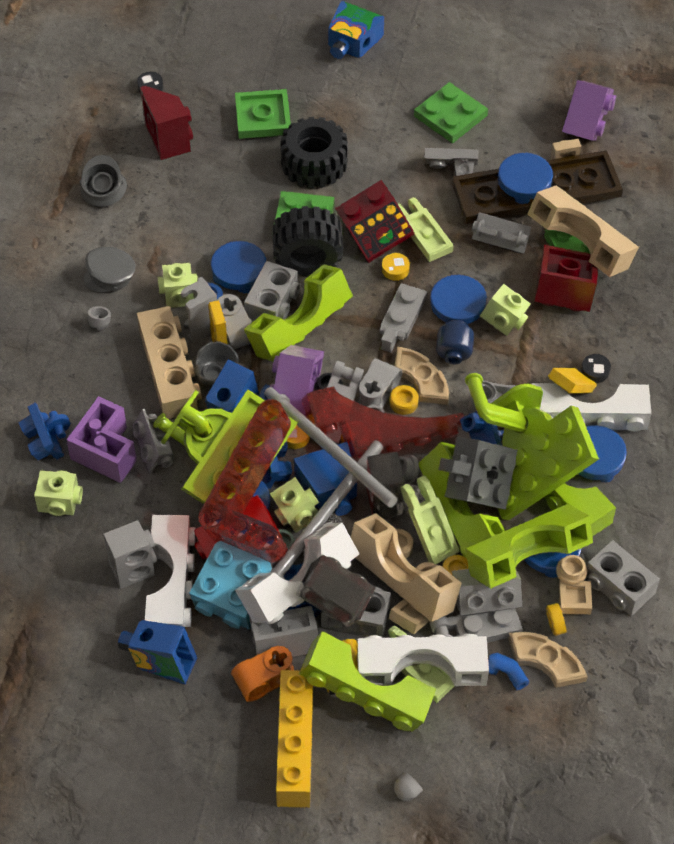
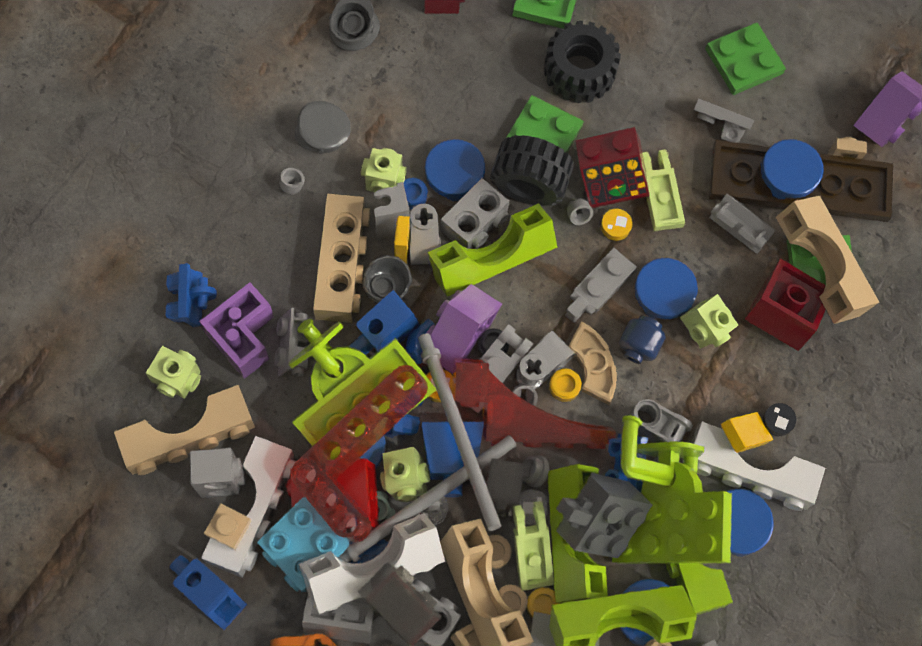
camera: 15 degrees right, 15 degrees up
(57, 558) = (146, 447): none -> tan arch
(158, 589) = (227, 527): none -> tan plate
(364, 262) = (582, 218): none -> light grey hinge

